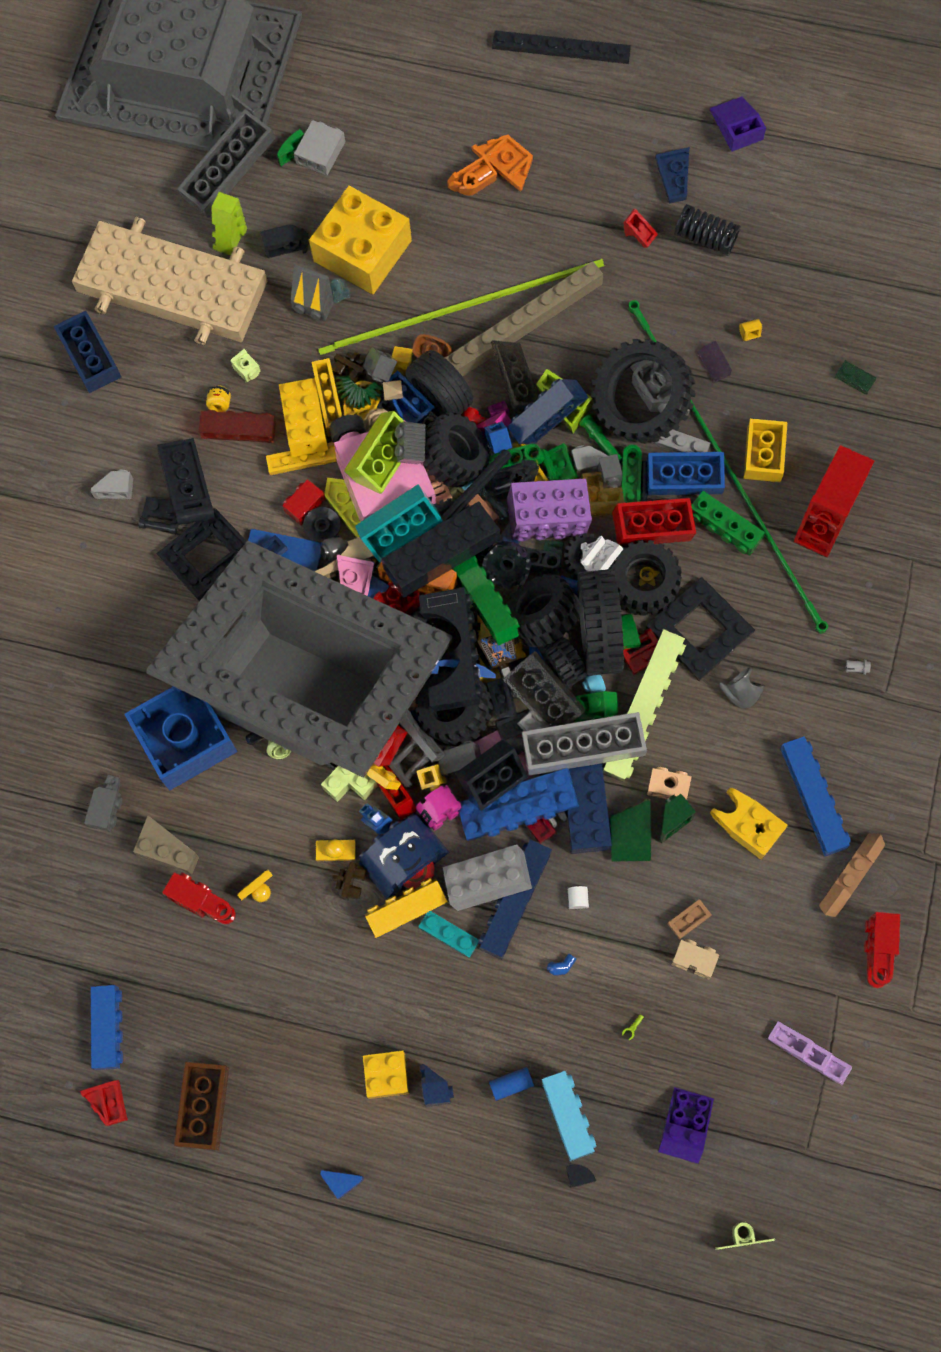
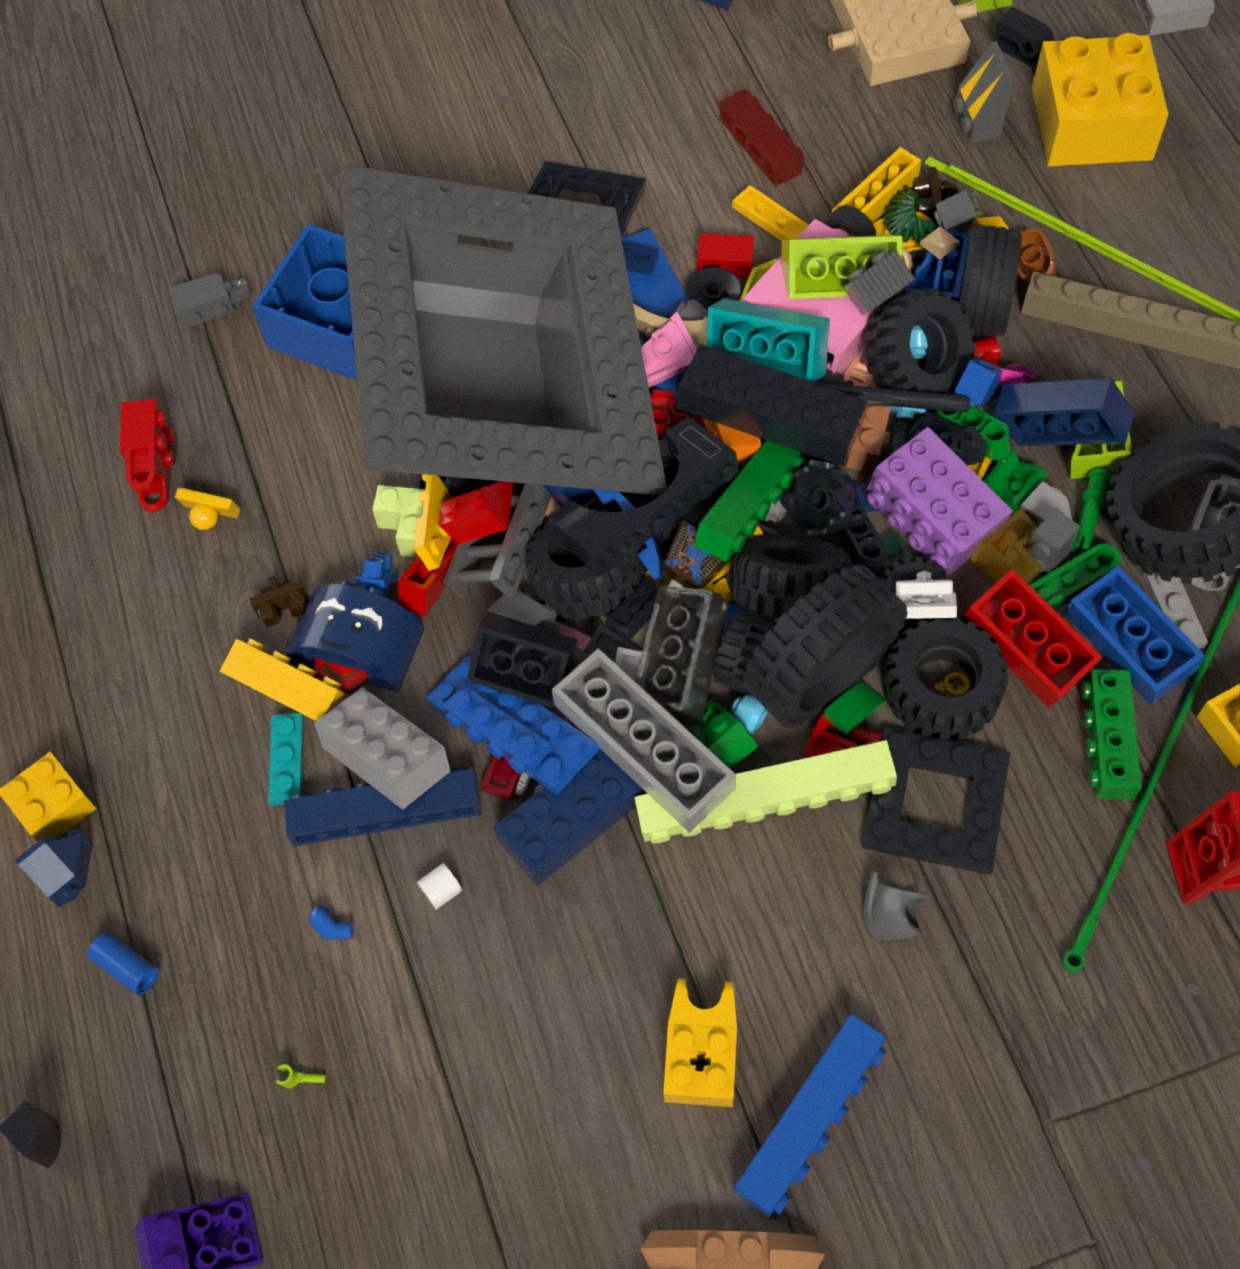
camera: 55 degrees right, 10 degrees down
(114, 486) = (593, 77): light grey slope -> none
(158, 509) = (602, 136): black plate -> none
(164, 848) = (193, 384): dark tan wedge -> none
(183, 475) = (650, 129): black hinge -> none
(218, 398) = (779, 101): yellow head -> none
(240, 364) = (842, 101): yellowish green brick -> none
(303, 417) = (822, 183): yellow brick -> none
(336, 850) = (312, 562): yellow tile -> none
(339, 290) = (1018, 127): clear light blue brick -> none
(431, 777) = (474, 600): yellow brick -> none
(438, 807) = (441, 634): dark pink brick -> none
(515, 374) = (1085, 346): clear smoke slope -> none
(568, 1116) = (110, 1065): medium azure brick -> none
(631, 833) = (573, 894): dark green slope -> none
(660, 775) = (680, 919): light nougat brick -> none
(675, 816) = (632, 932): dark green slope -> none
(689, 919) = (504, 1053): medium nougat plate -> none
(697, 958) = (449, 1087): tan brick -> none
(858, 666) = (1056, 1052): light grey pin -> none

